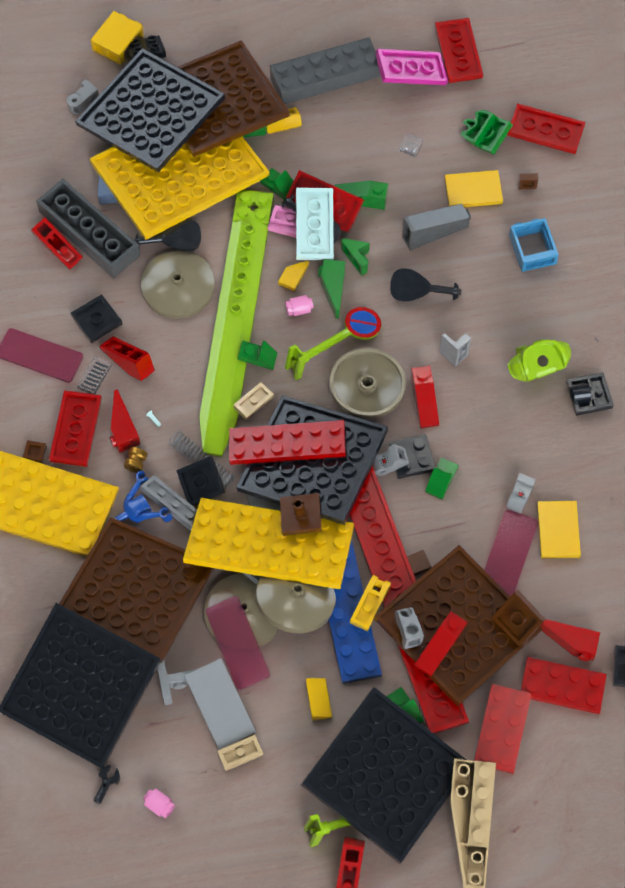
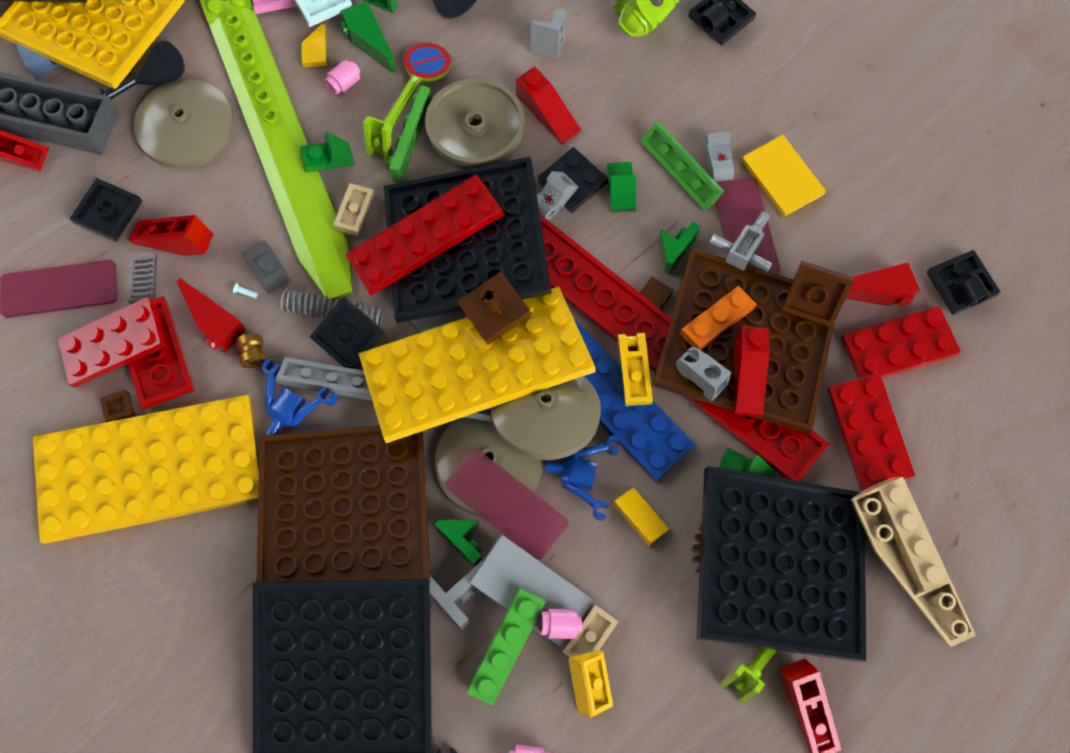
camera: 30 degrees left, 5 degrees up
(53, 408) = (111, 342): none -> plate
(176, 409) = (266, 266): none -> dark grey slope
(184, 726) = (505, 646): none -> bright green plate
(197, 644) = (456, 533): none -> green slope
(223, 779) = (590, 683): none -> yellow slope
(224, 731) = (559, 623): none -> bright pink brick
(296, 650) = (580, 473): none -> blue piece
(316, 372) = (407, 141): none -> bright green plate
(444, 599) = (718, 318): none -> orange plate
(449, 540) = (673, 248): none -> green slope
(491, 486) = (682, 166): none -> bright green plate
(497, 562) = (745, 246): none -> light grey piece

